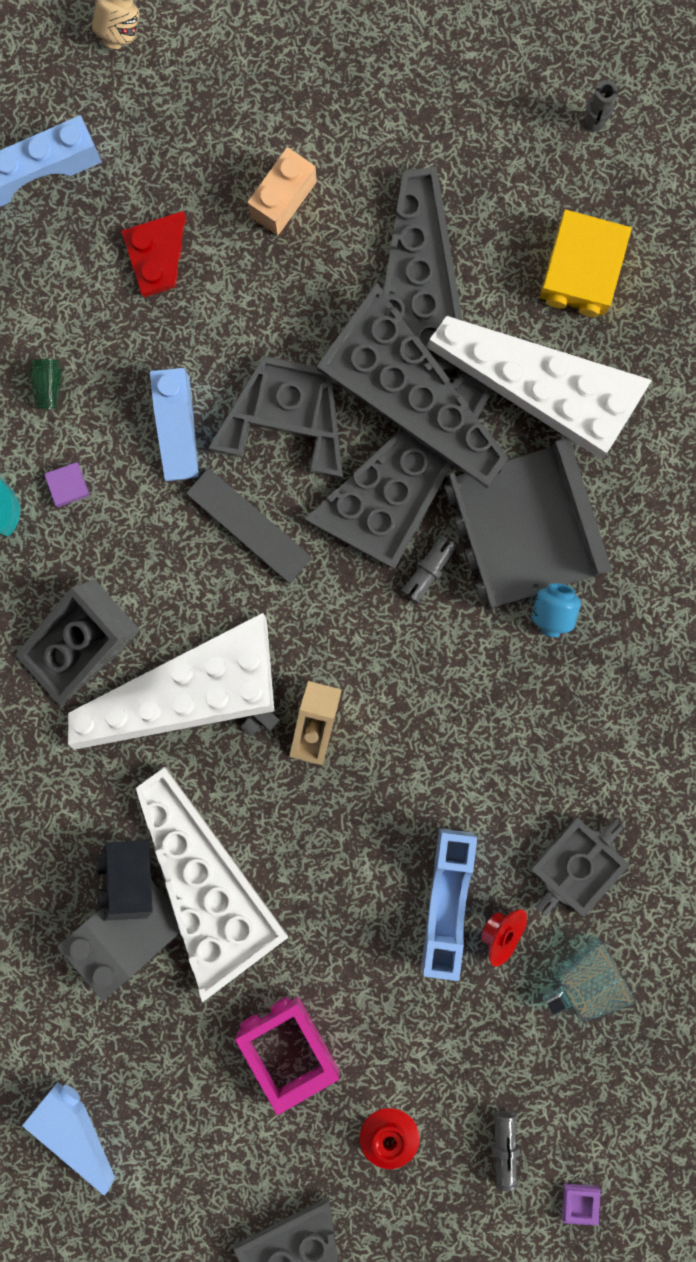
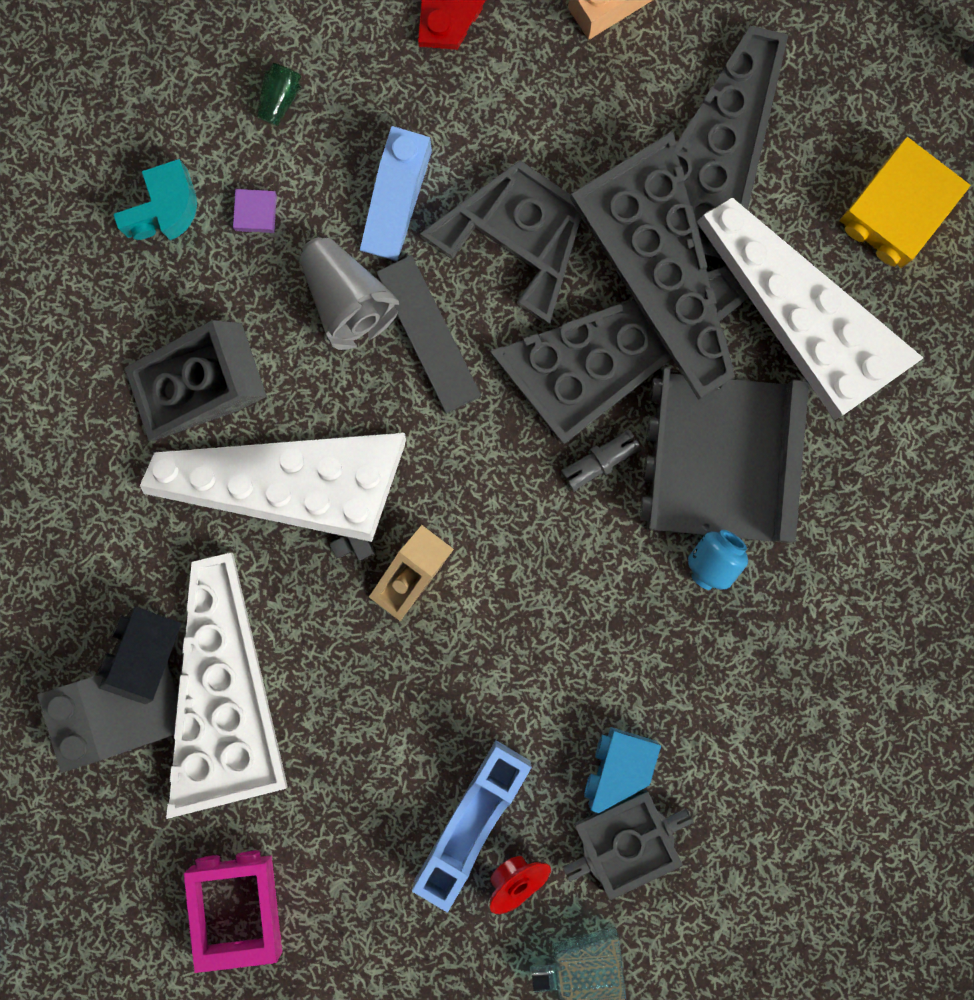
camera: 20 degrees right, 0 degrees up
(169, 521) = (345, 294): none -> light grey cone
(551, 808) = (623, 770): none -> dark azure slope

